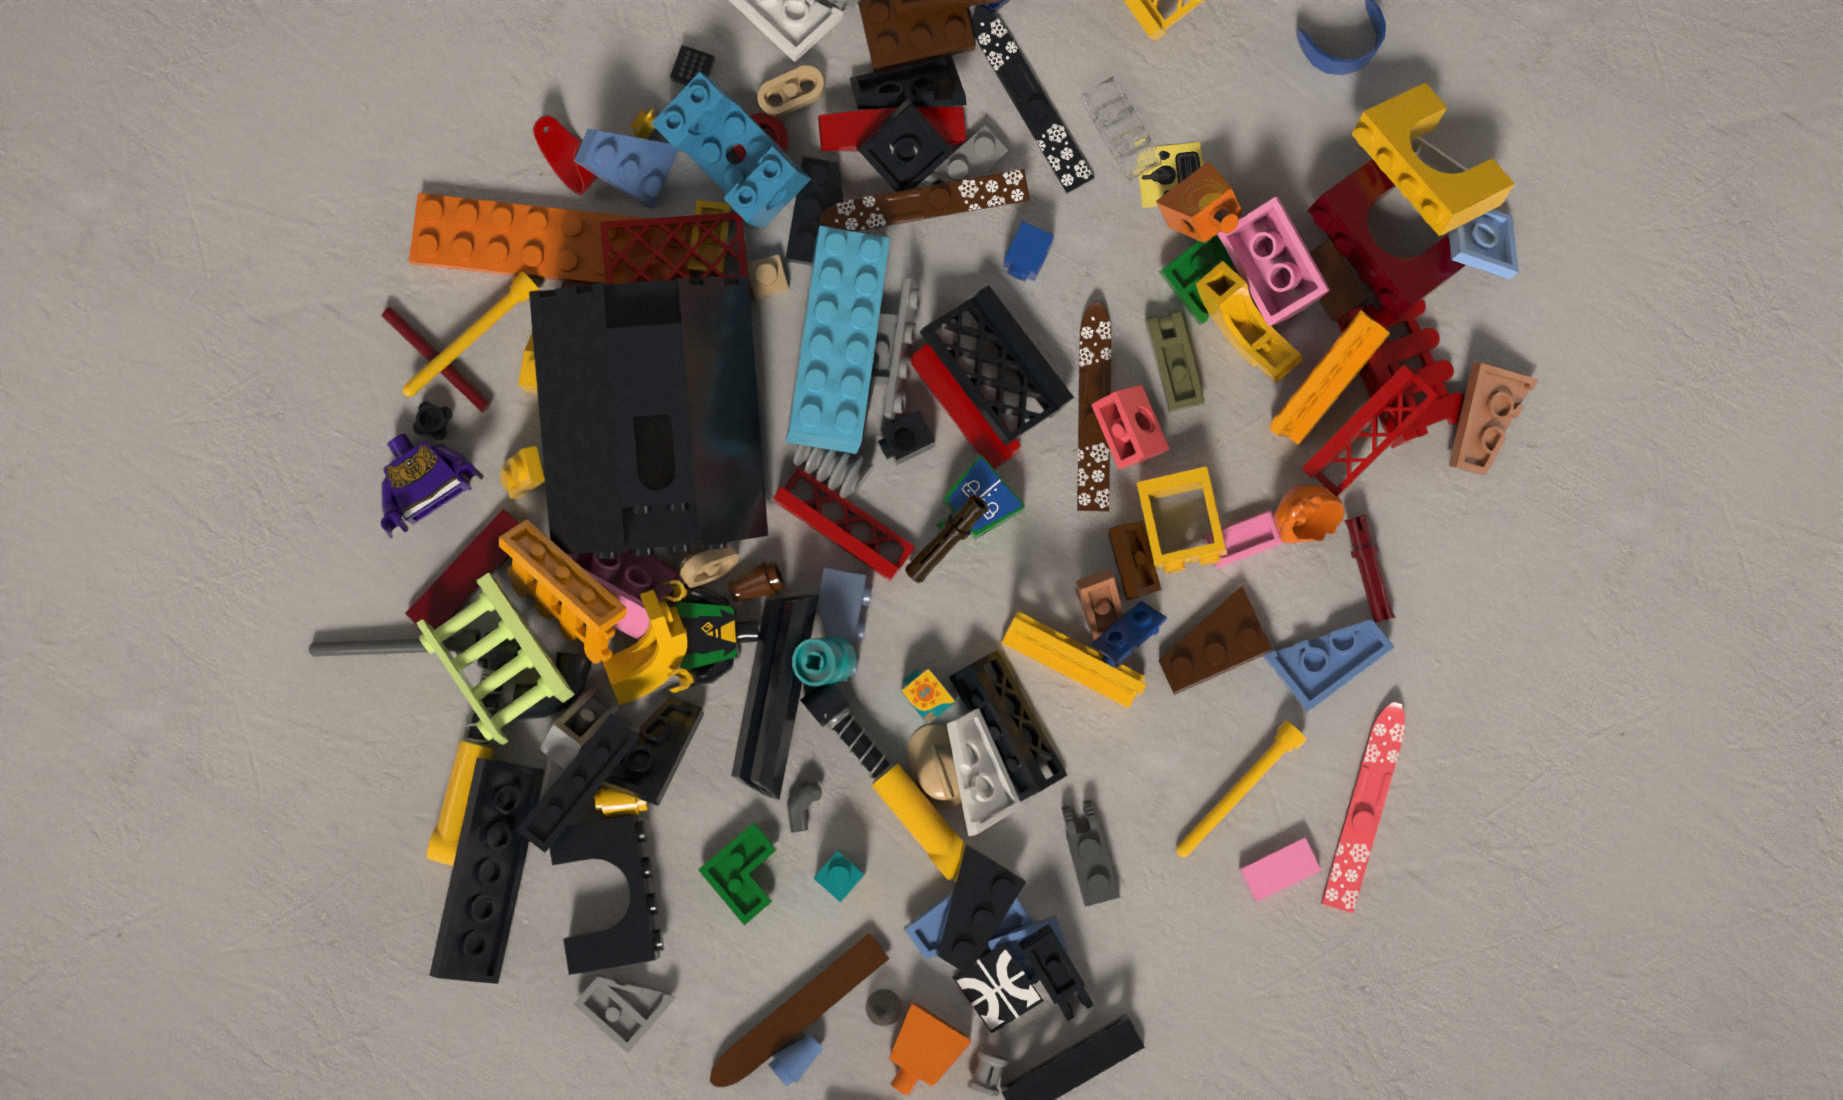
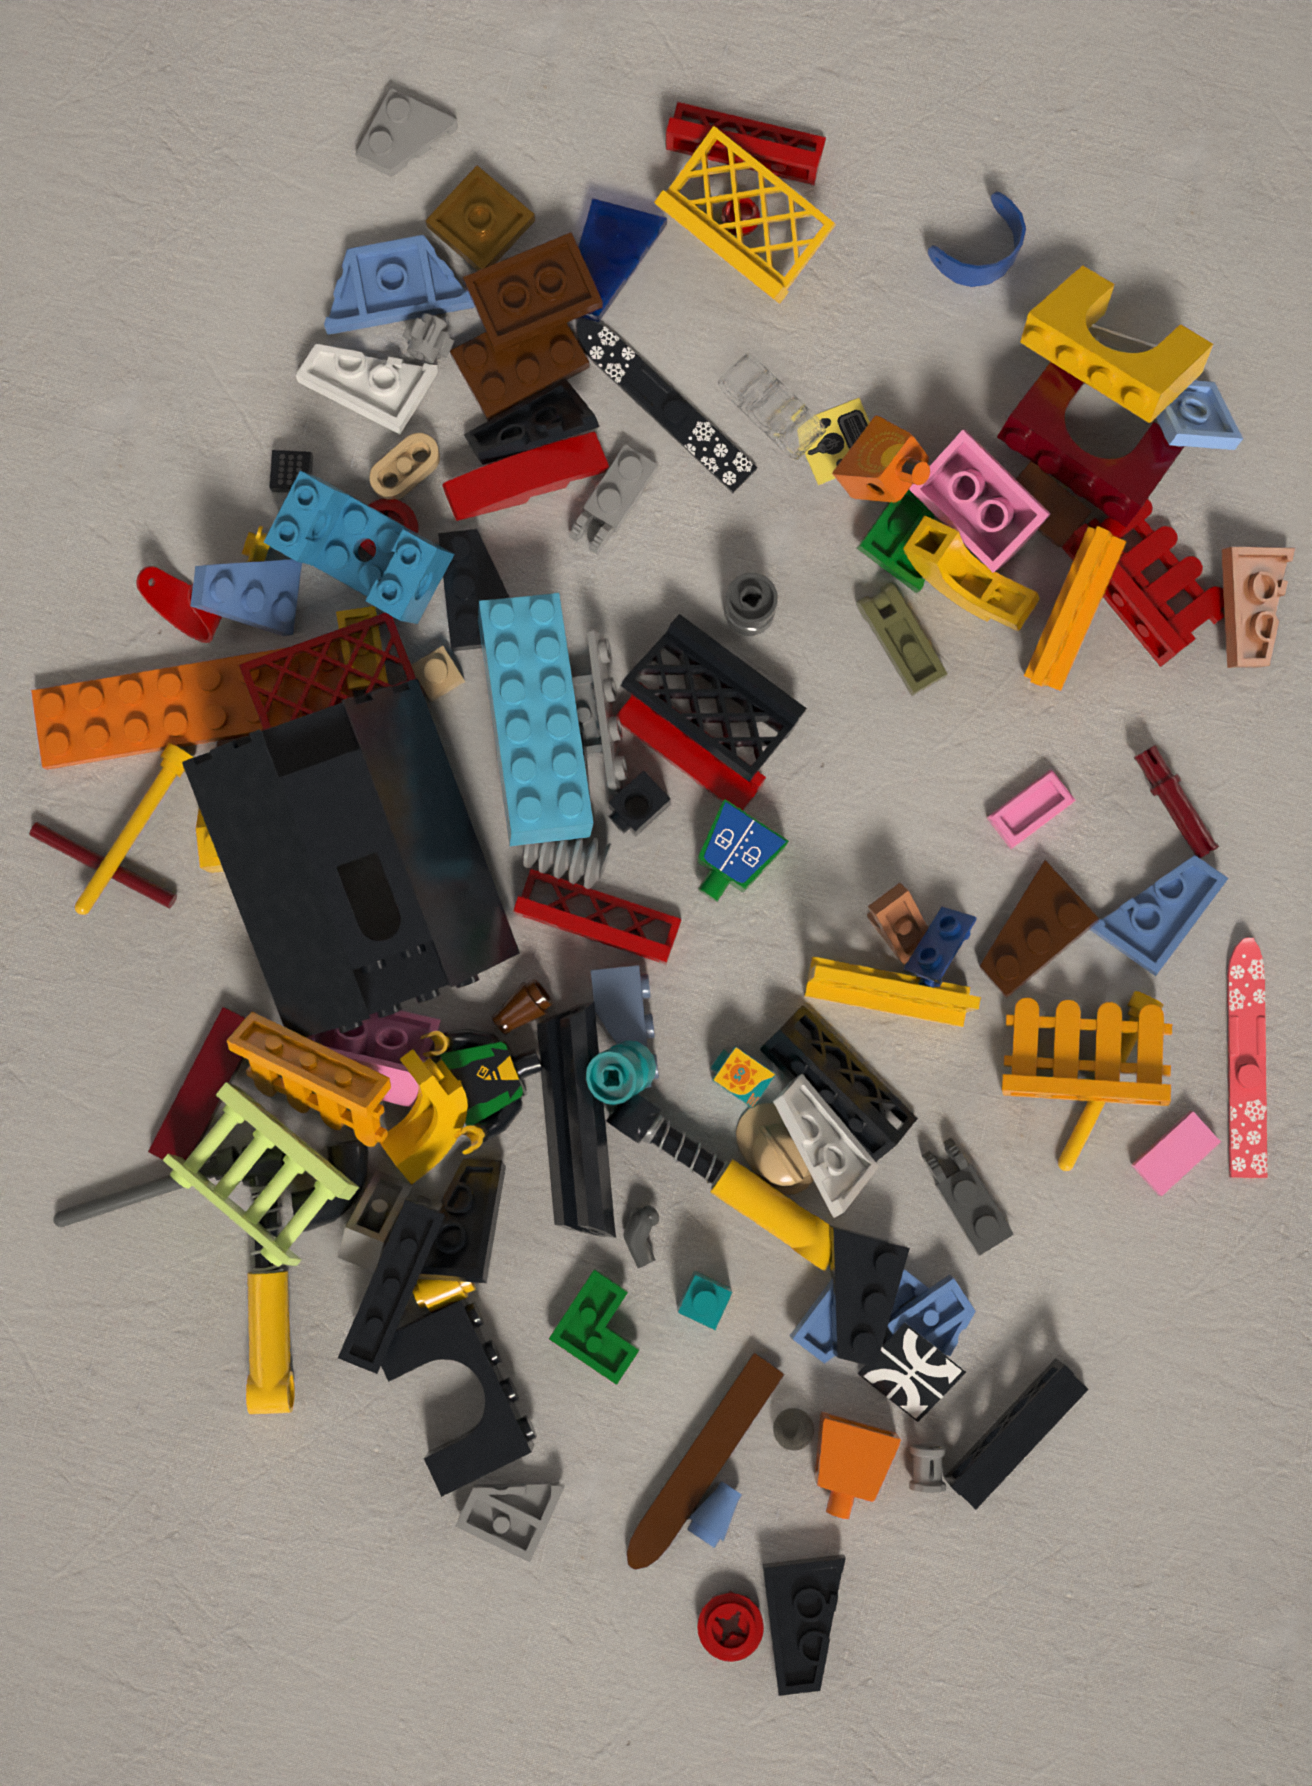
camera: 15 degrees left, 0 degrees up
(421, 481) = (124, 1003): dark purple torso -> none
(423, 417) = (108, 926): black plate -> none
(486, 873) = (318, 1411): black plate -> none
(522, 472) = (232, 962): yellow plate -> none
(707, 566) = (463, 1005): tan plate -> none
(904, 148) = (546, 492): black tile -> none
(928, 202) = (588, 543): reddish brown piece -> none
(955, 528) = (721, 887): dark brown pin -> none
(1028, 252) = (710, 567): blue brick -> none
(1052, 294) = (750, 604): none -> dark grey wheel
(1054, 969) = (967, 1334): black hinge -> none
(1094, 384) = (831, 717): reddish brown piece -> none
(1130, 426) = (876, 723): coral brick -> none
(1134, 560) = (922, 865): reddish brown panel -> none
(1177, 484) = (941, 772): yellow window -> none
(1241, 776) = (1107, 1065): none -> light orange fence
(1308, 514) = (1094, 762): orange hair -> none
(1360, 421) = (1122, 646): red fence -> none

